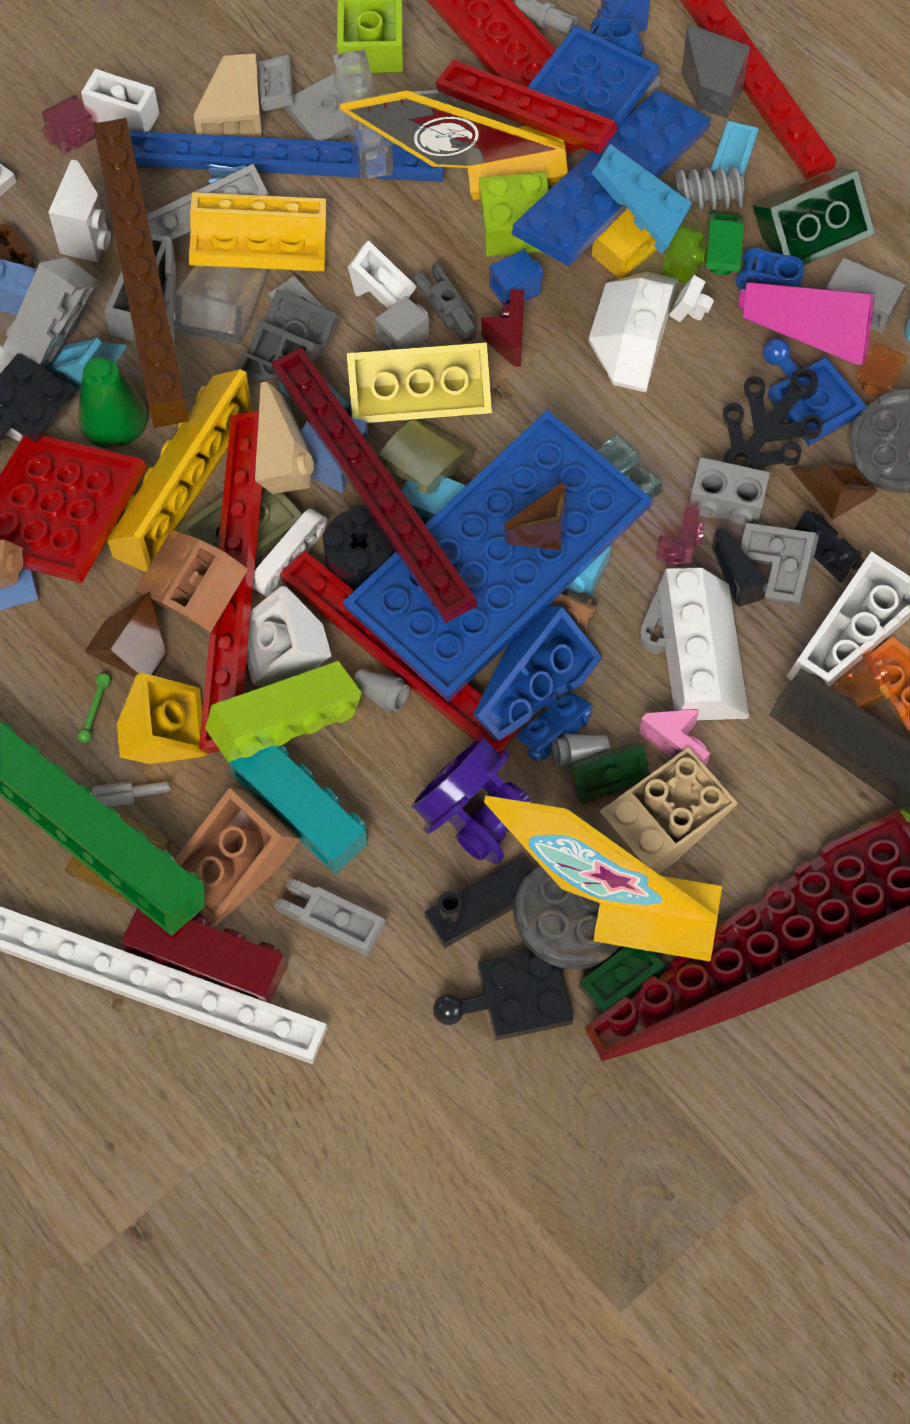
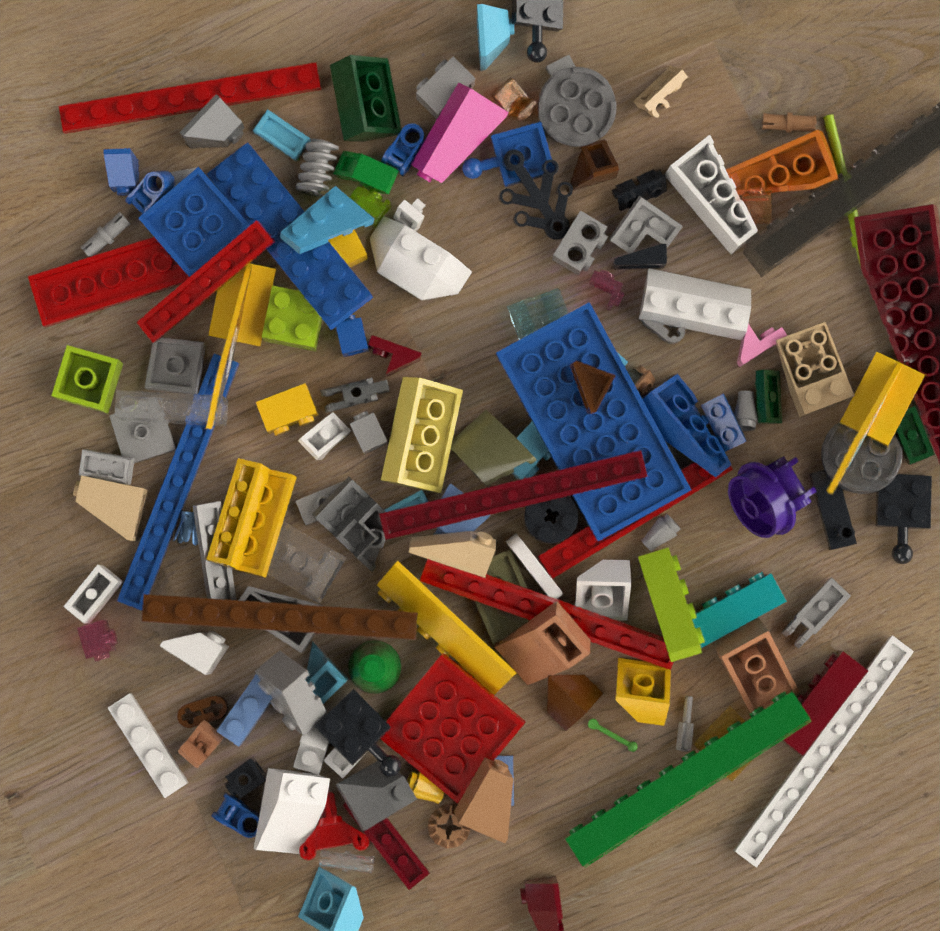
camera: 80 degrees left, 20 degrees up
(403, 237) = (287, 409): none -> yellow brick

